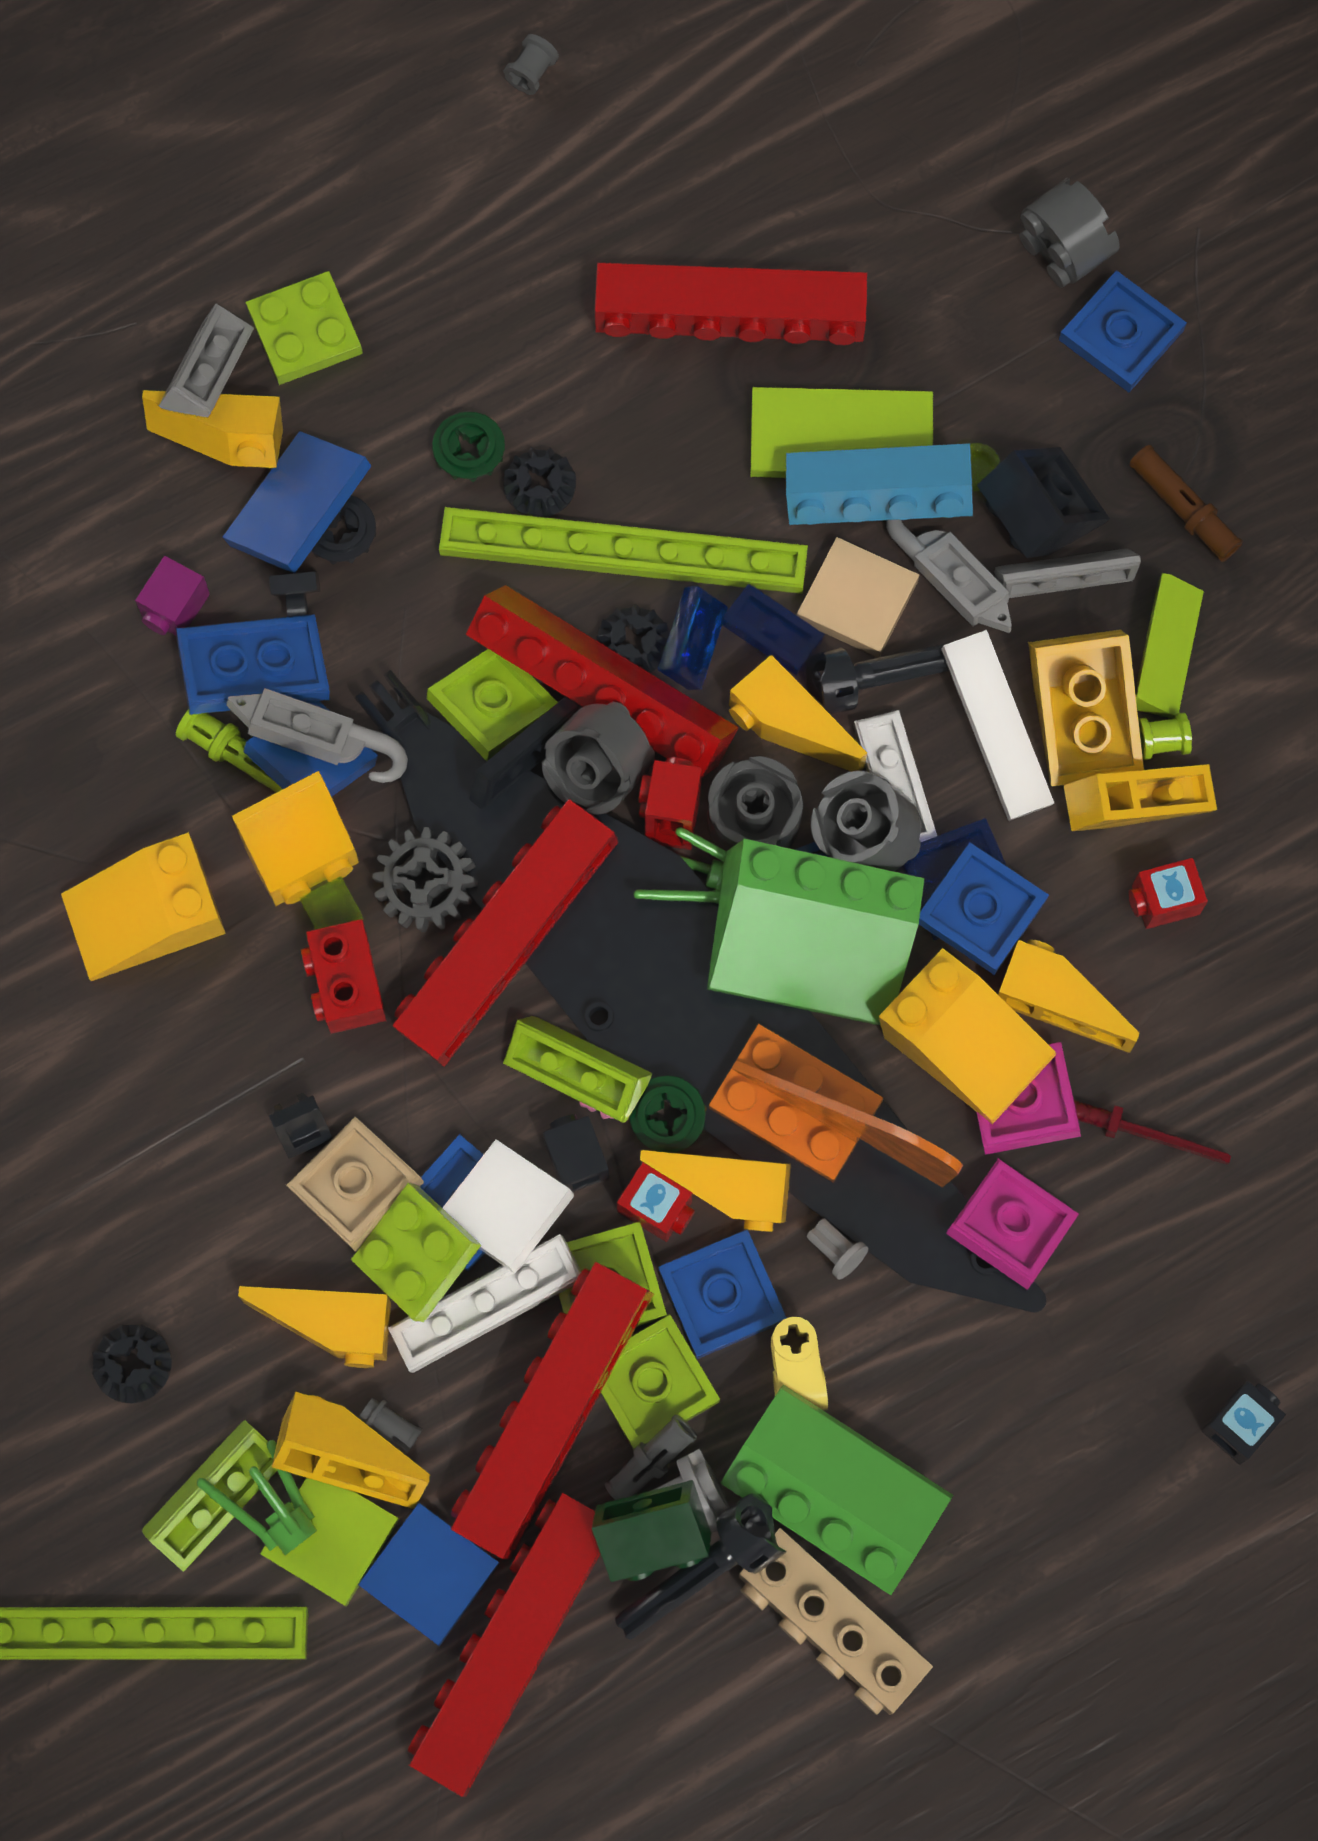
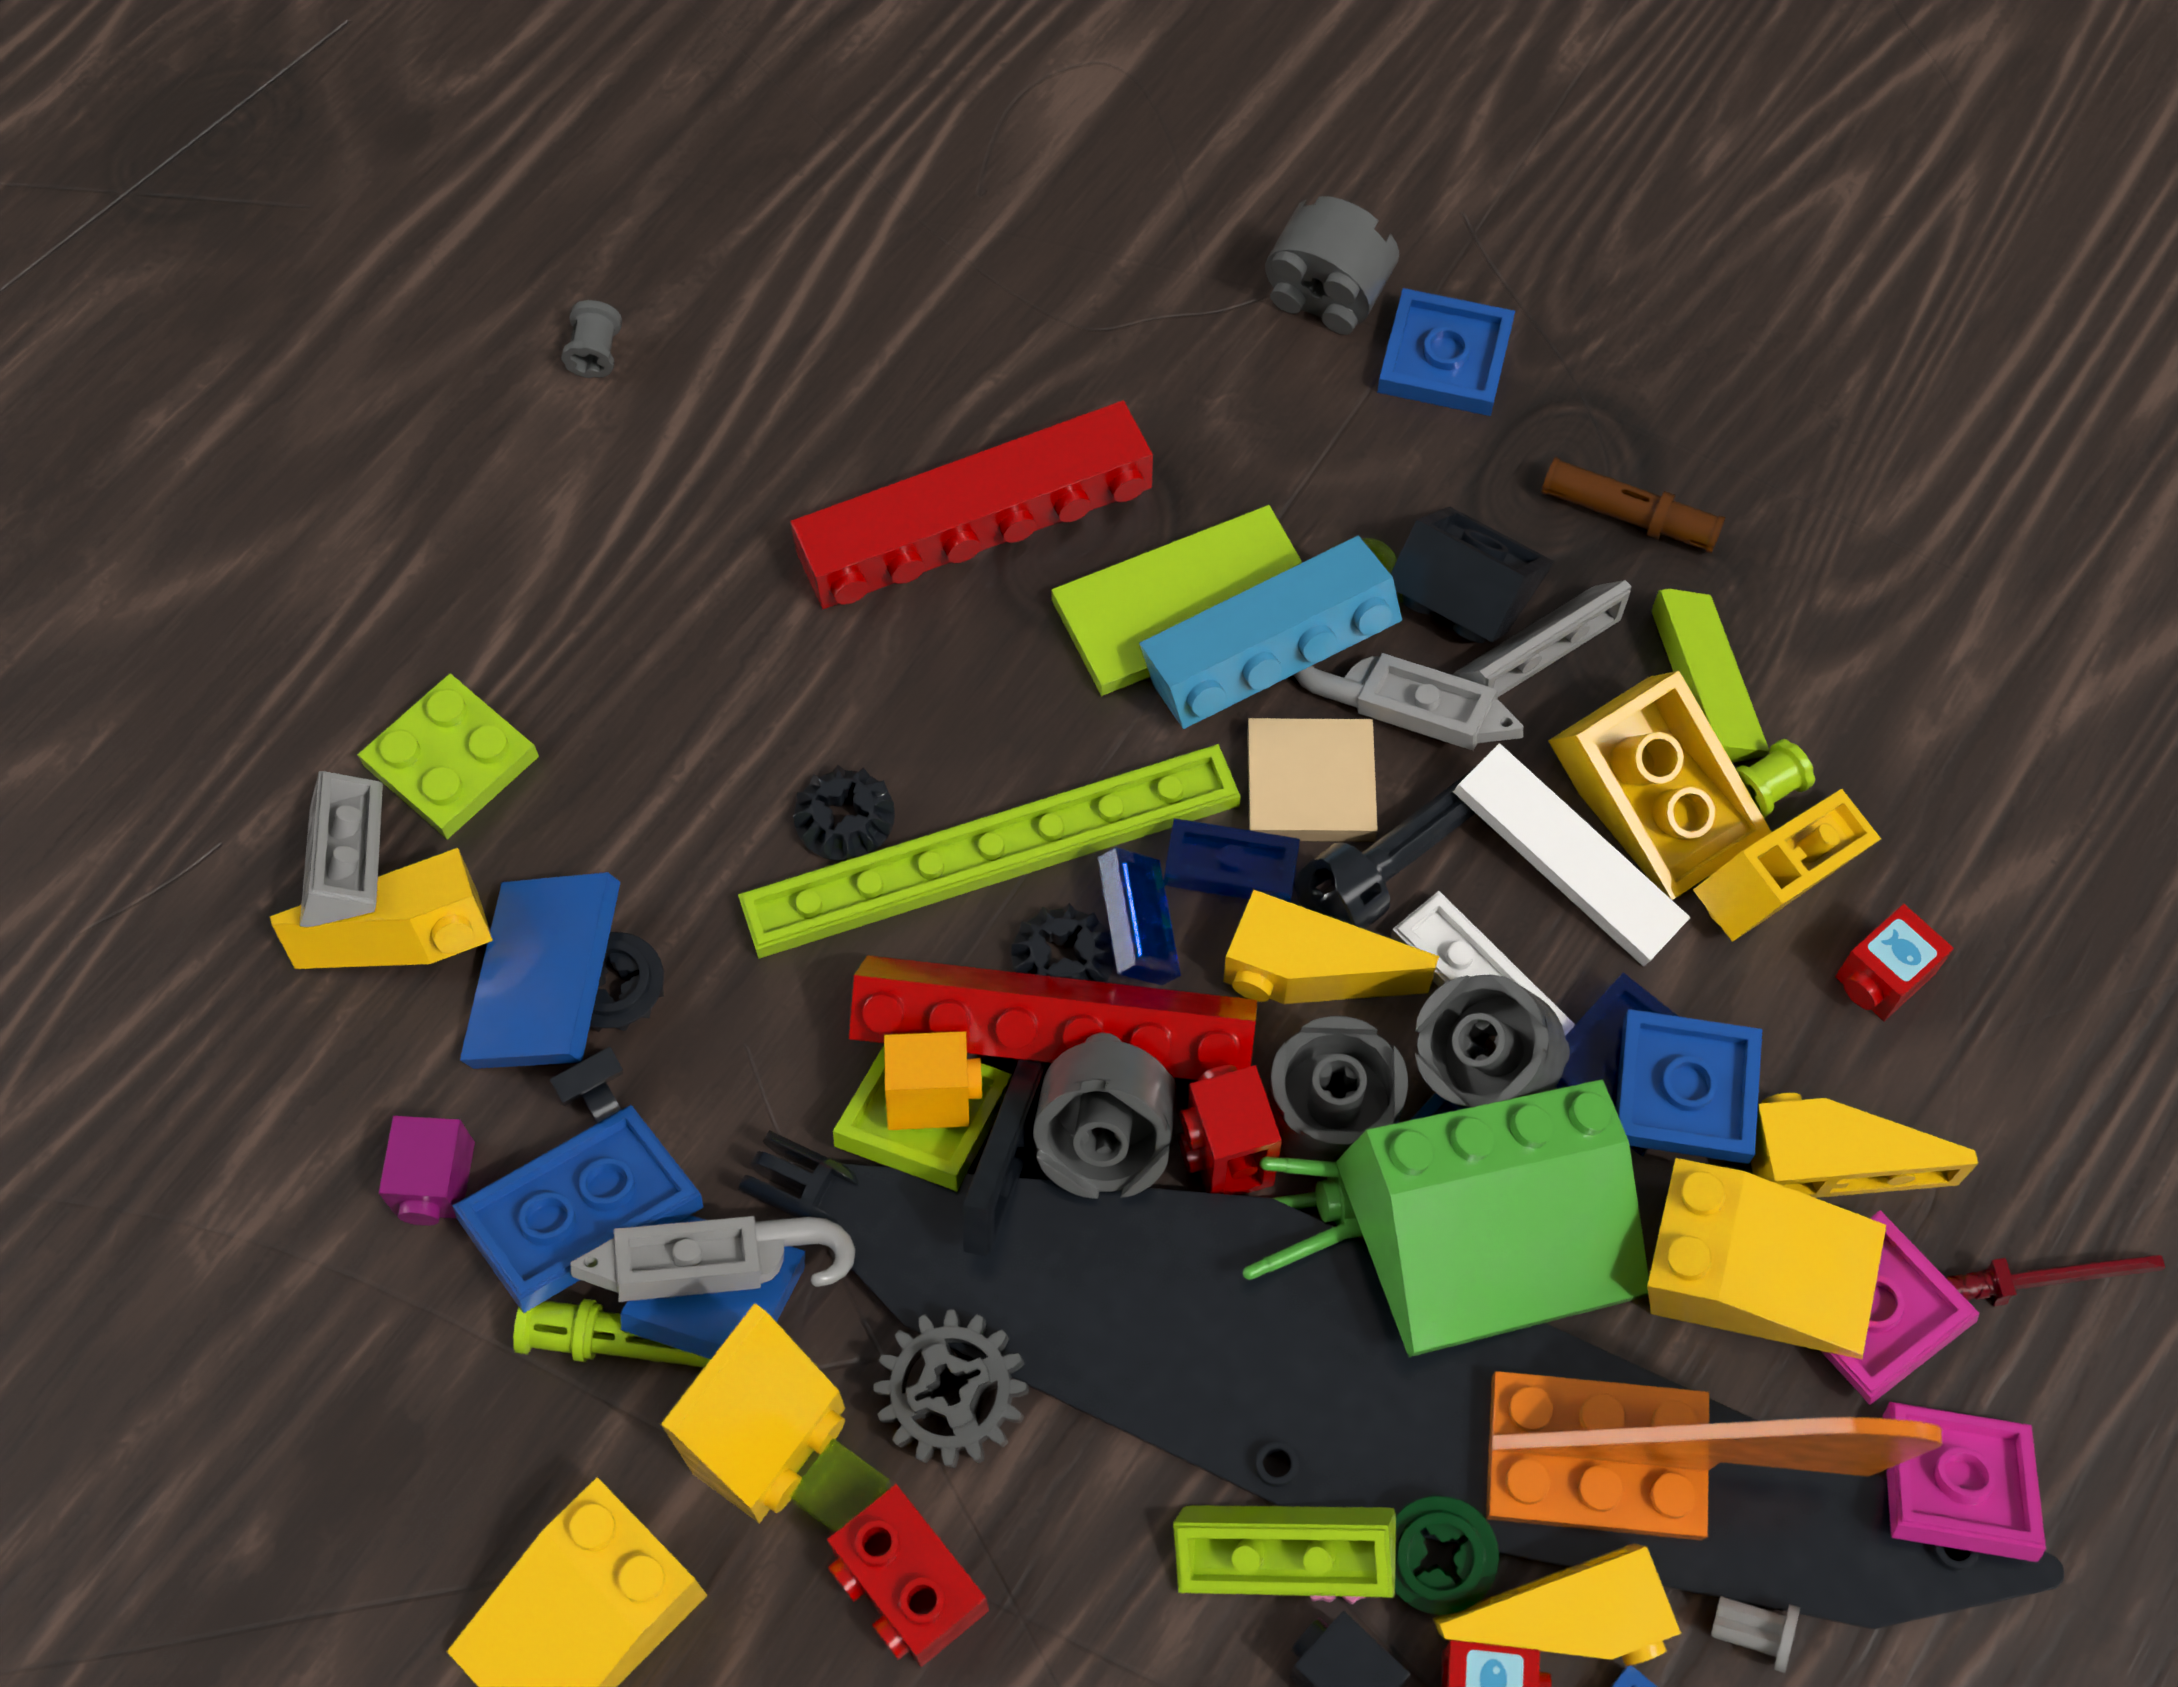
camera: 25 degrees left, 10 degrees down
(472, 428) = (724, 785): dark green gear -> none
(500, 684) = (929, 1080): none -> light orange brick
(505, 931) = (1097, 1414): red brick -> none

